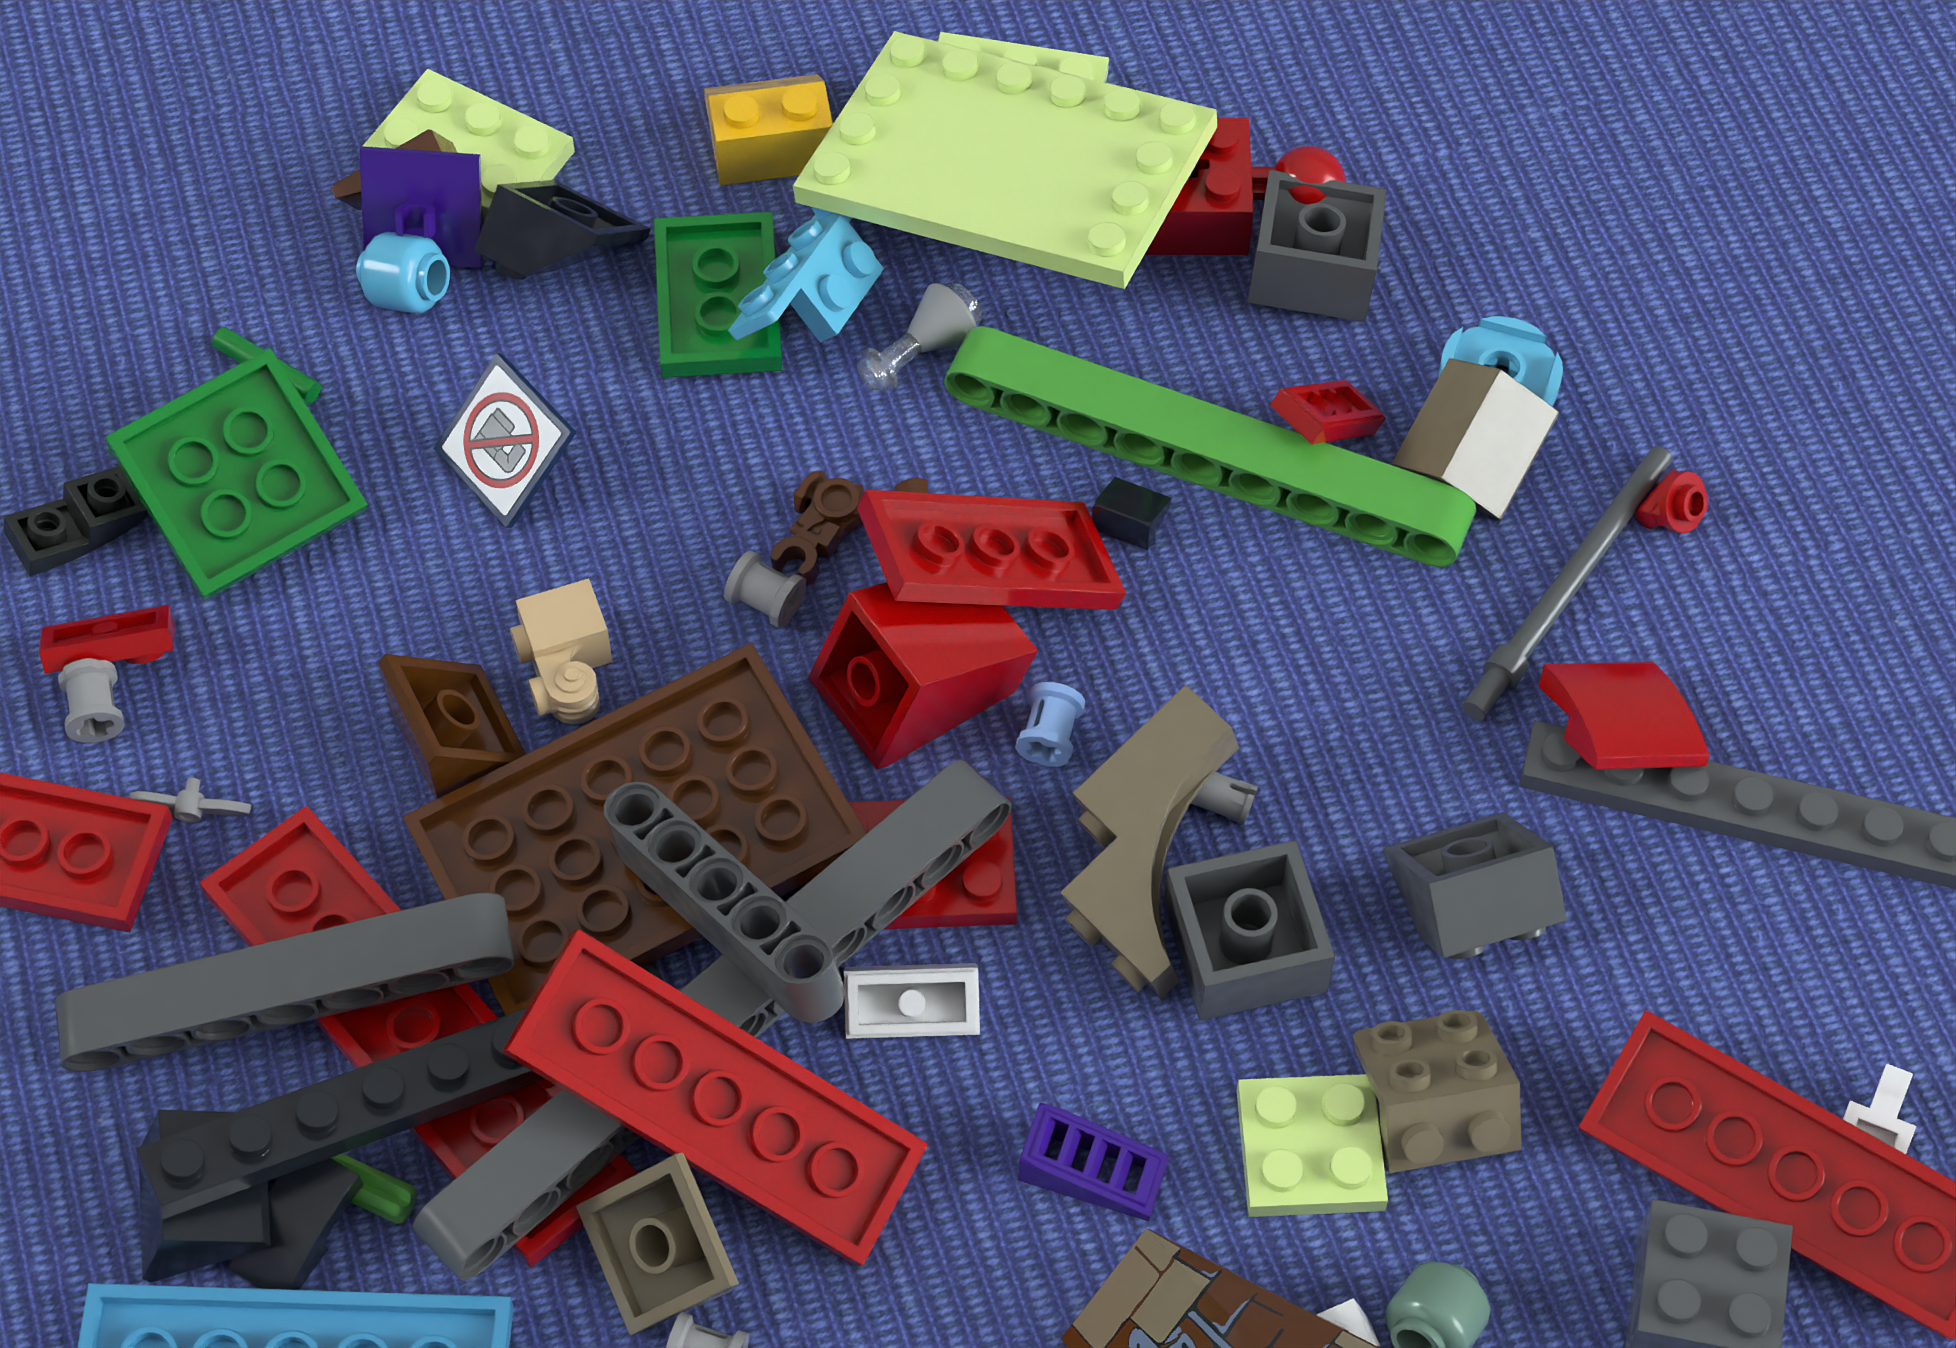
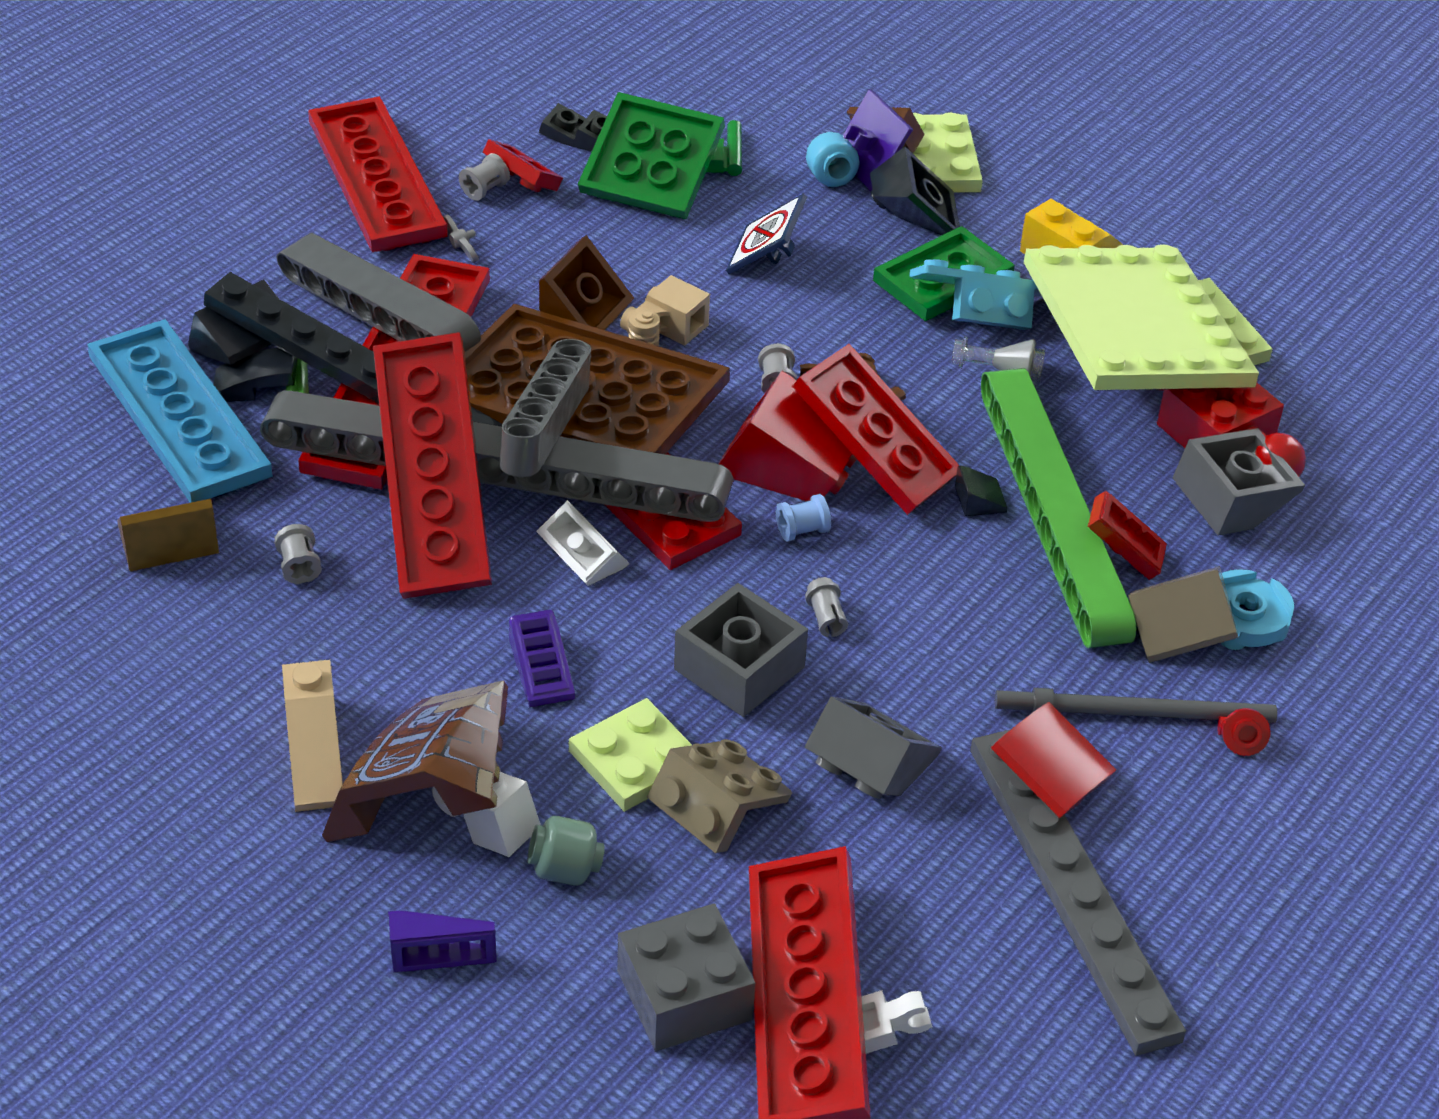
camera: 55 degrees right, 15 degrees down
(657, 1244) = (347, 502): dark tan slope -> none
(1138, 806) = (771, 565): dark tan arch -> none

